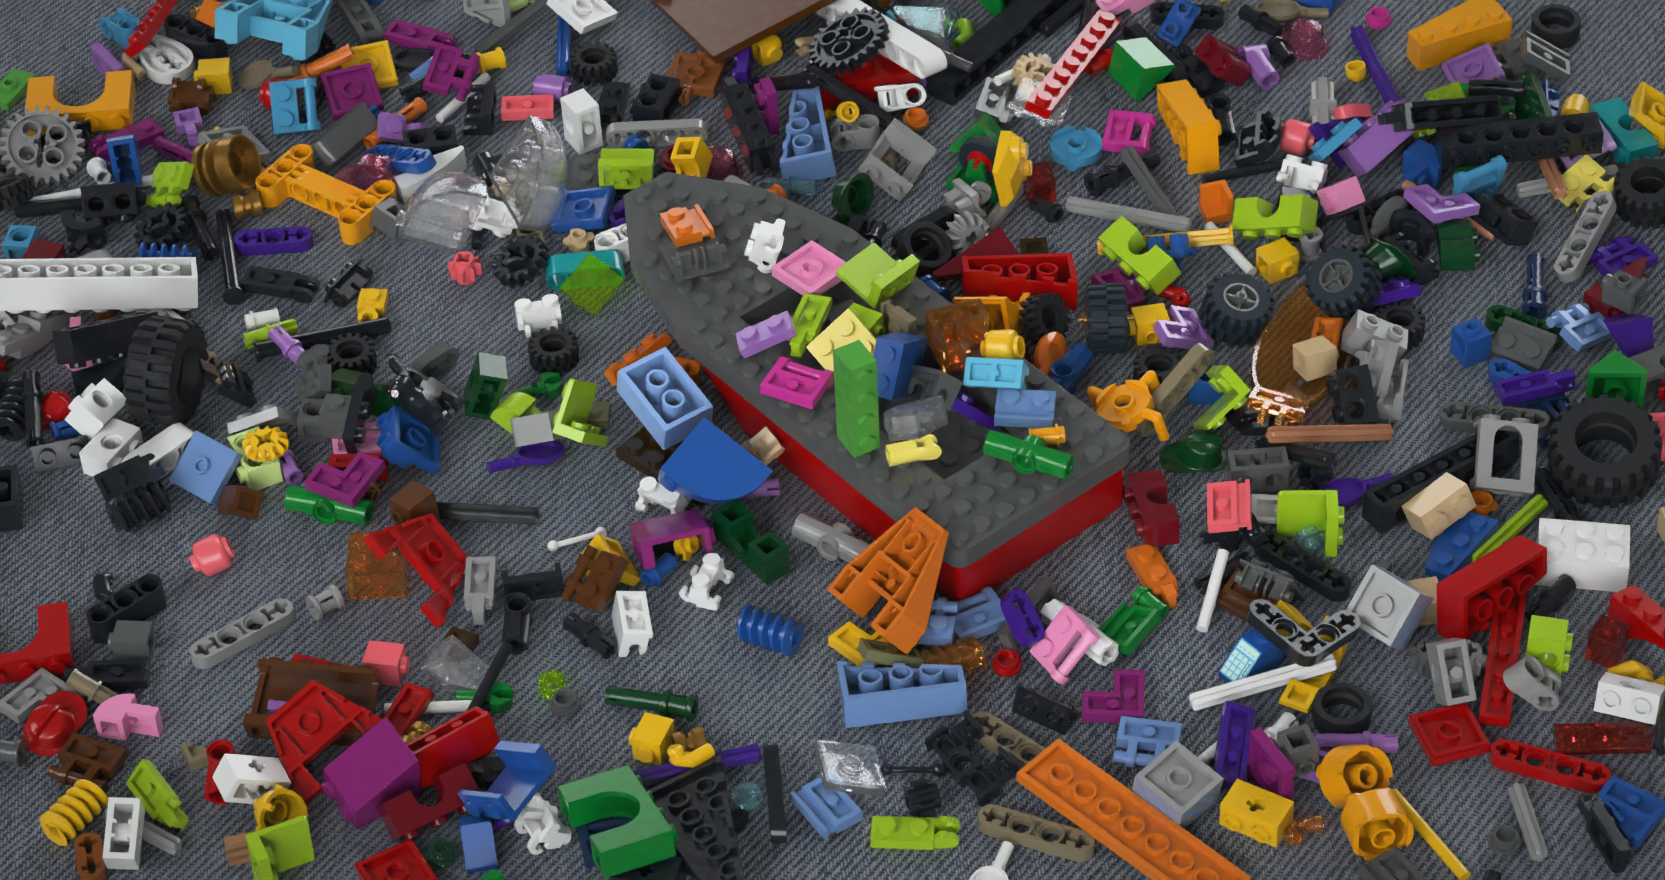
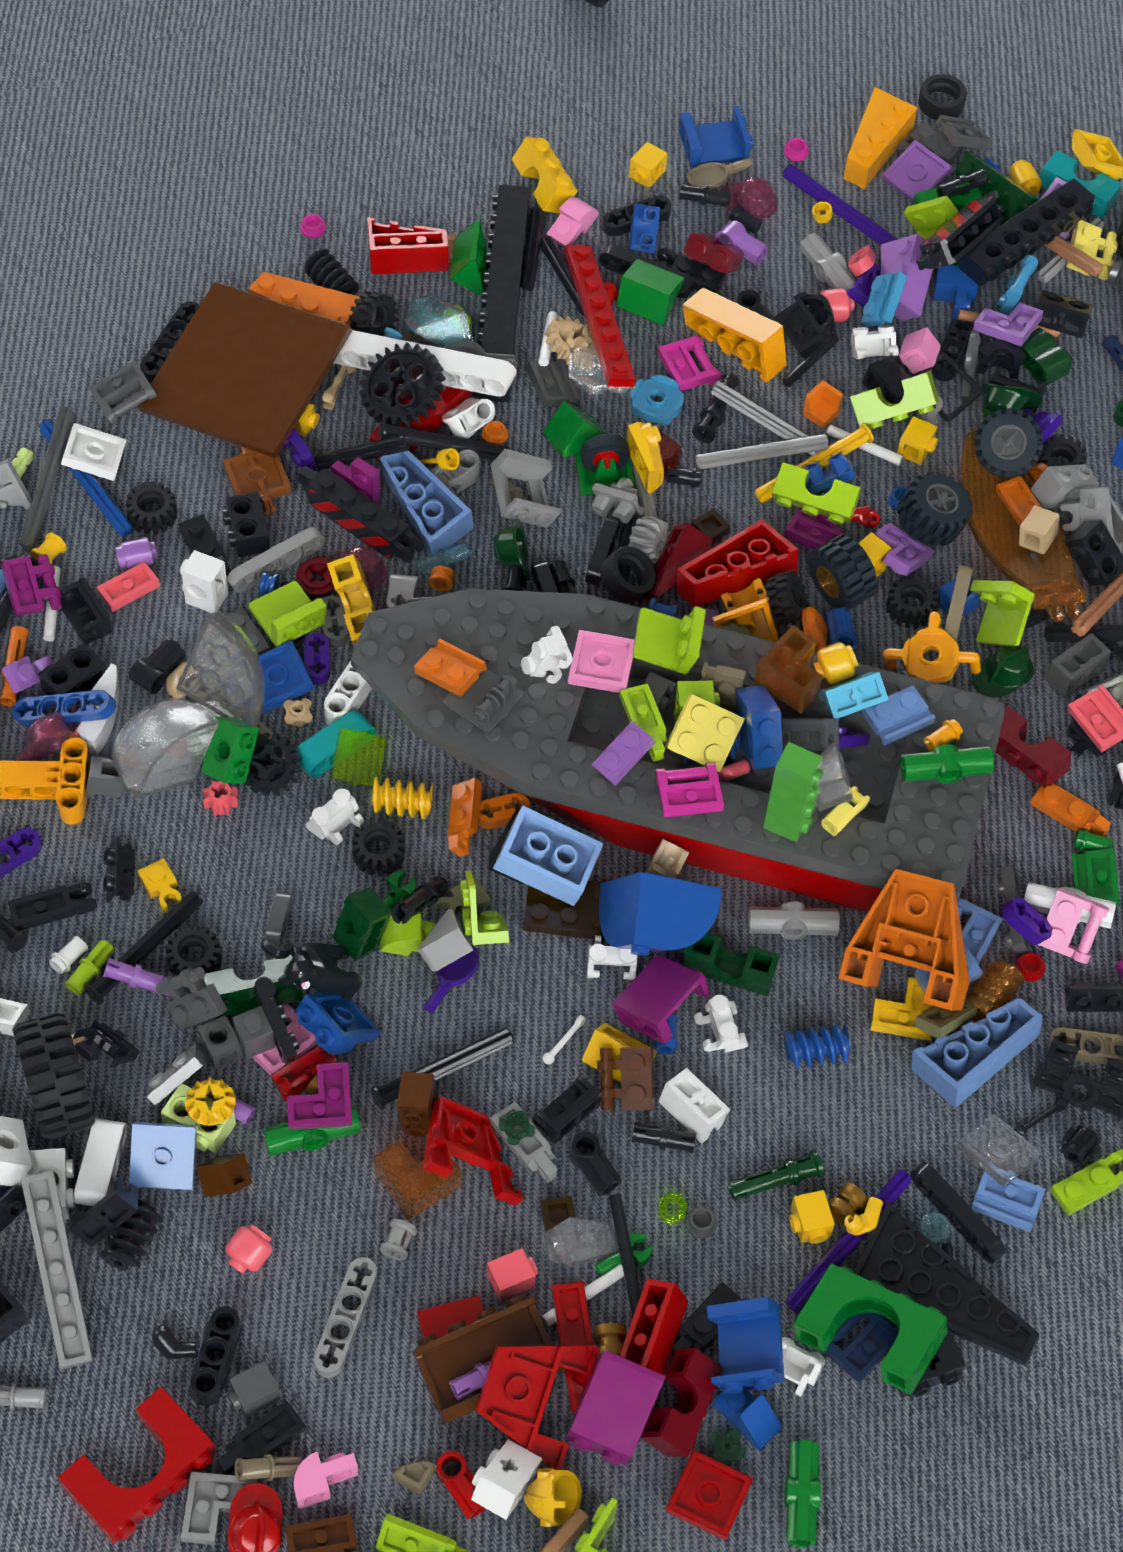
camera: 40 degrees left, 15 degrees up
(64, 498) = (57, 1270): none -> light grey plate
(476, 567) = (514, 1119): none -> clear green plate
(492, 232) = (230, 750): none -> green brick
(541, 388) = (424, 896): none -> black pin
(600, 325) = (402, 798): none -> yellow piece

